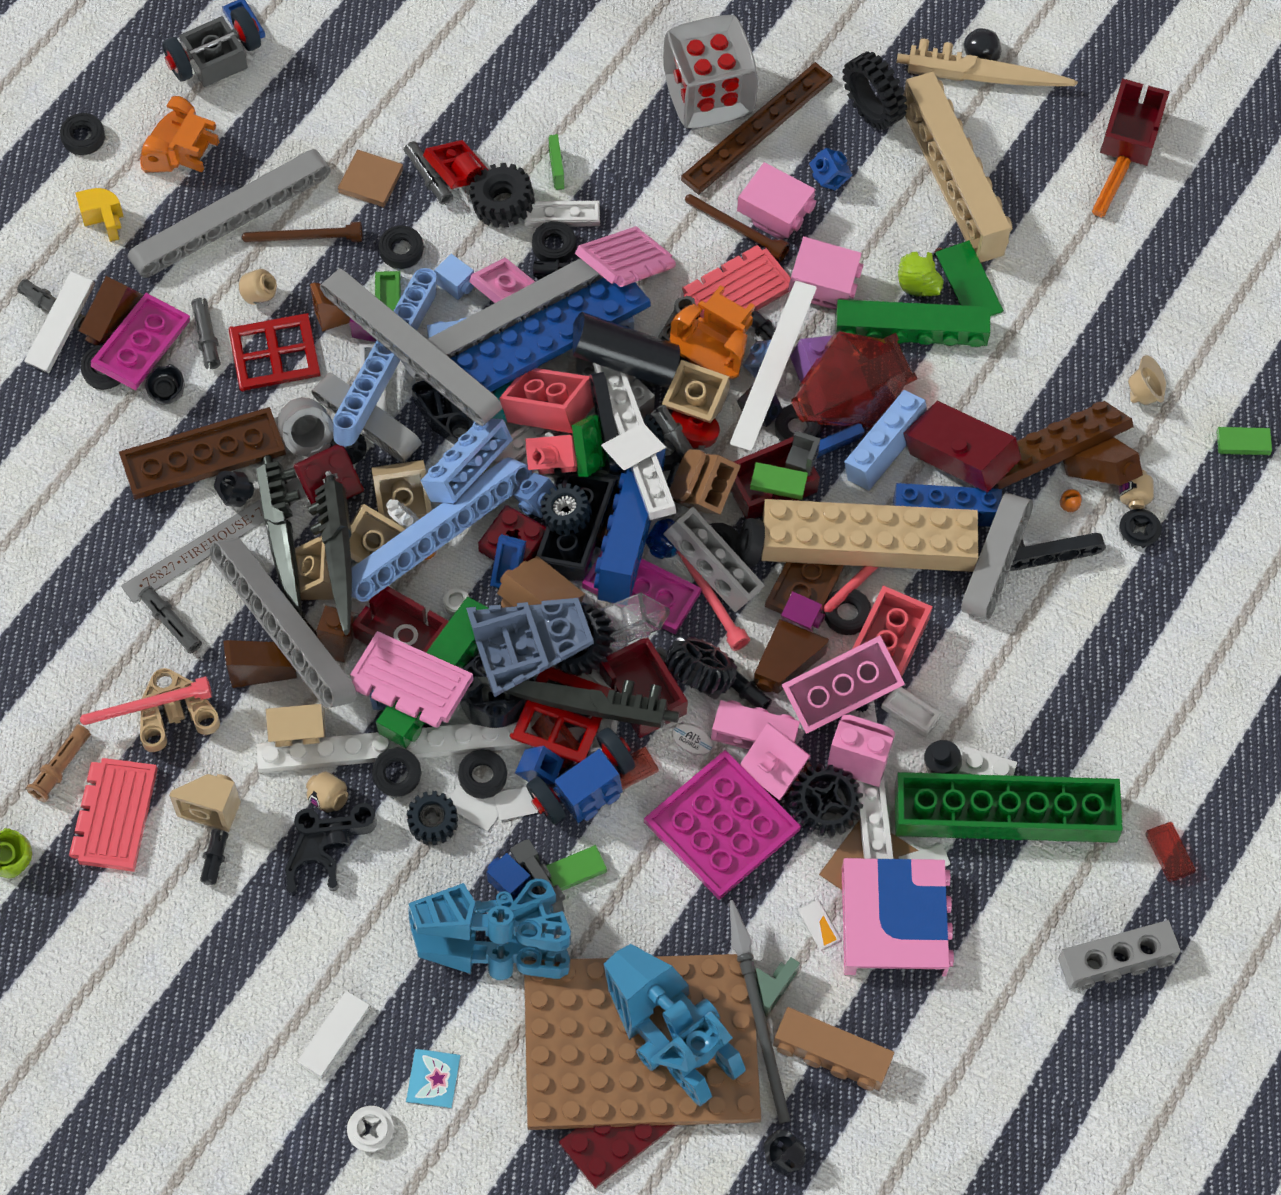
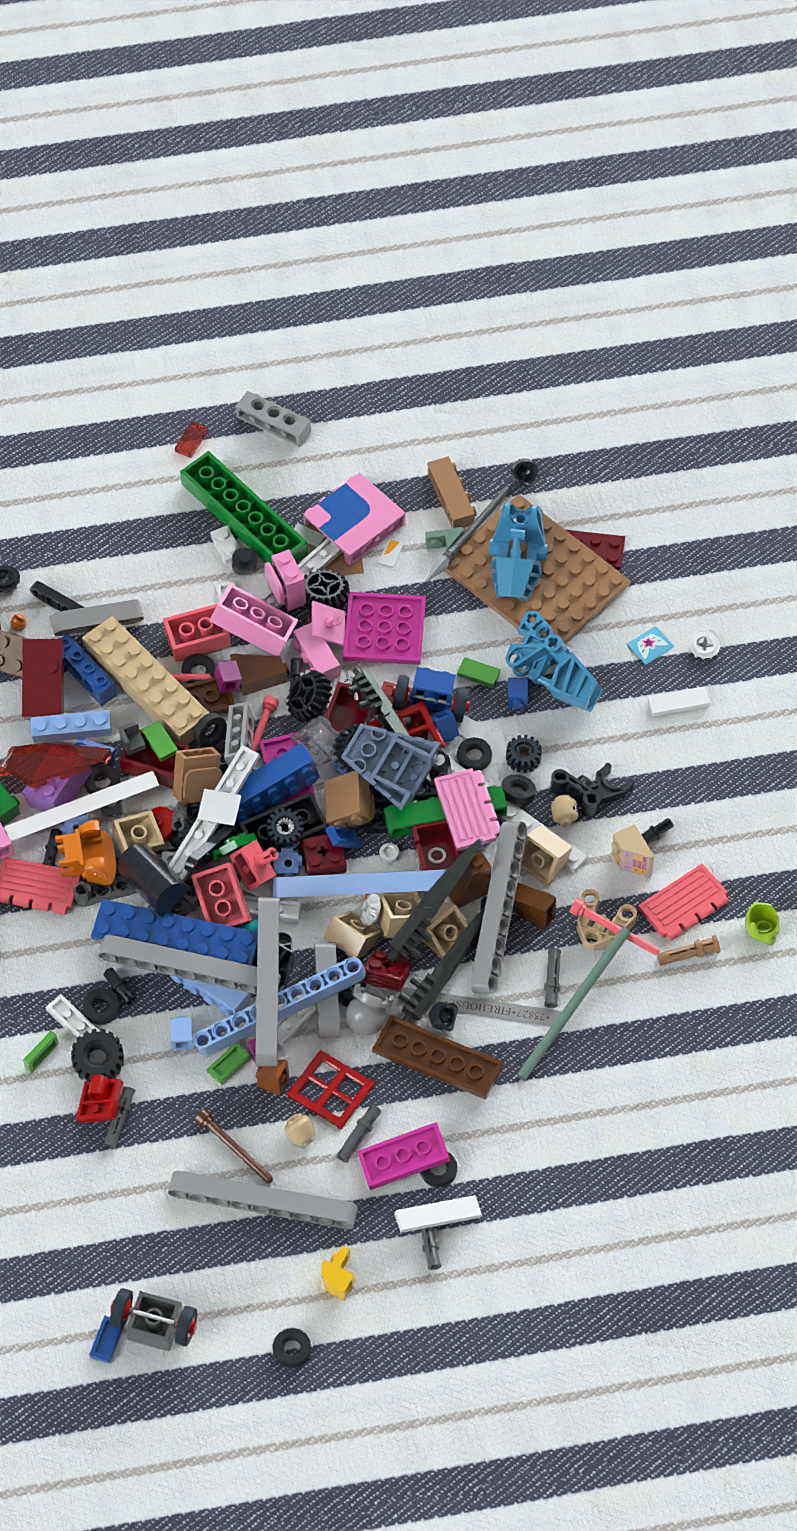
camera: 130 degrees left, 5 degrees down
(108, 310) = (399, 1193): reddish brown slope -> none
(118, 605) = (573, 1004): none -> sand green piece
(165, 384) = (416, 1115): black hair -> none
(178, 139) = (241, 1284): orange piece -> none
(370, 178) = (155, 1149): medium nougat tile -> none
(395, 234) = (188, 1097): black tyre -> none
(466, 461) = (311, 906): light blue brick -> none
(500, 280) = (160, 999): bright pink plate -> none
(528, 859) = (499, 688): dark grey plate -> none
(626, 256) = (80, 942): bright pink hinge -> none

